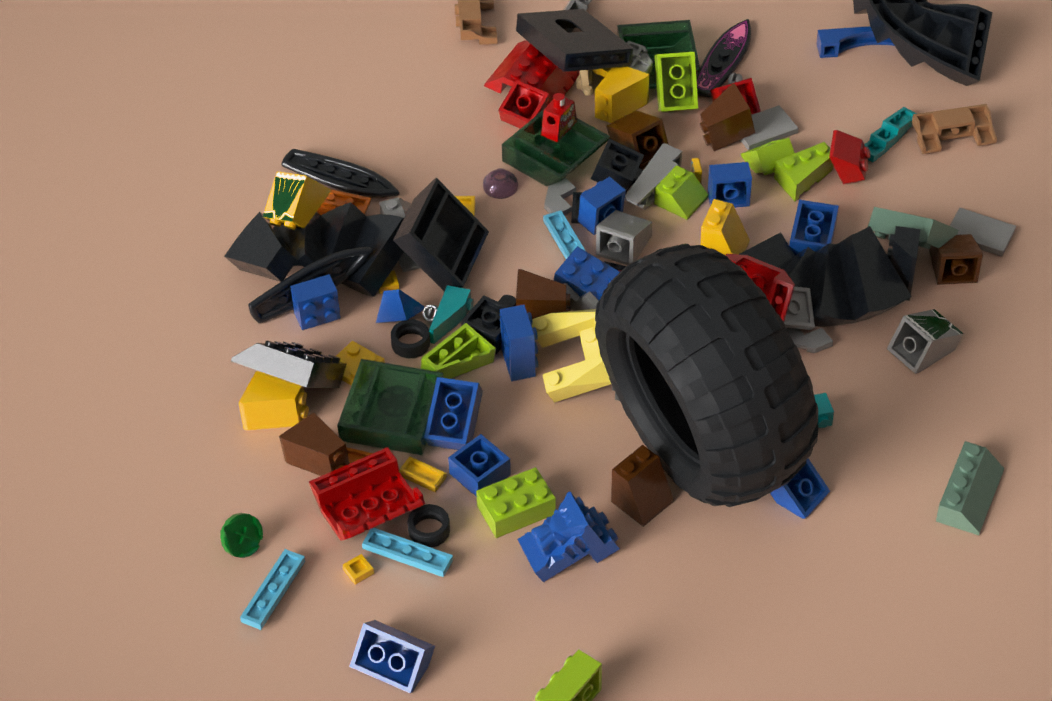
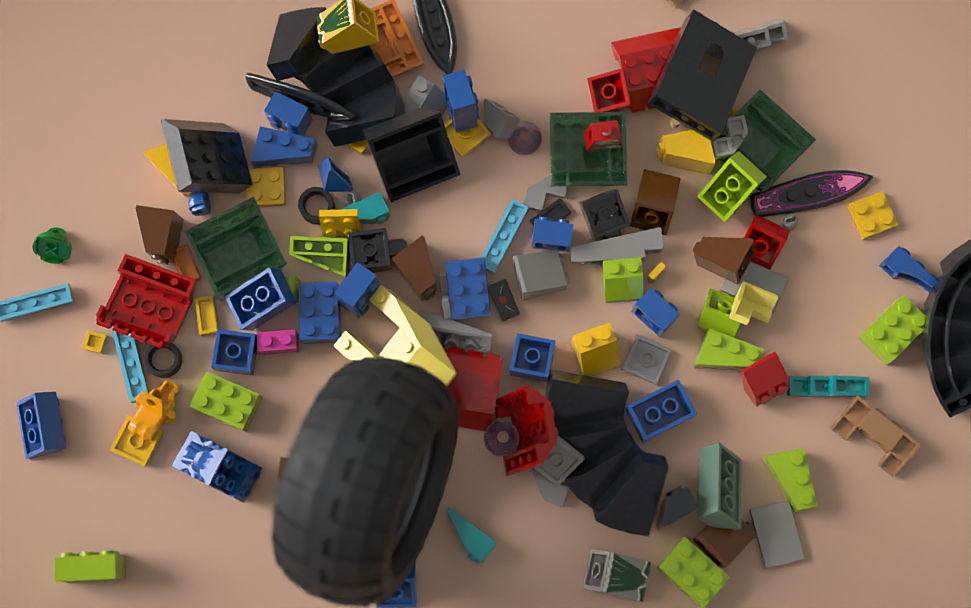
camera: 50 degrees right, 30 degrees up
(321, 409) = (199, 204): none -> blue piece
(337, 326) = (281, 147): none -> blue wedge
(428, 165) = (461, 100): none -> blue brick
(443, 321) = (339, 222): none -> yellow plate
(471, 181) = (499, 119): none -> light grey slope
(472, 553) = (154, 411): none -> light orange piece
(483, 592) = (133, 446): none -> yellow plate
(504, 430) = (277, 342): none -> dark pink brick
(508, 391) = (319, 313): none -> blue brick
(762, 221) = (647, 359): none -> light grey tile
(777, 37) = (872, 215): none -> yellow plate
(779, 127) = (752, 302): none -> light yellow panel
(880, 72) = (894, 330): none -> lime brick
(944, 191) = (793, 477): none -> lime wedge
(967, 293) = (693, 572): none -> lime brick

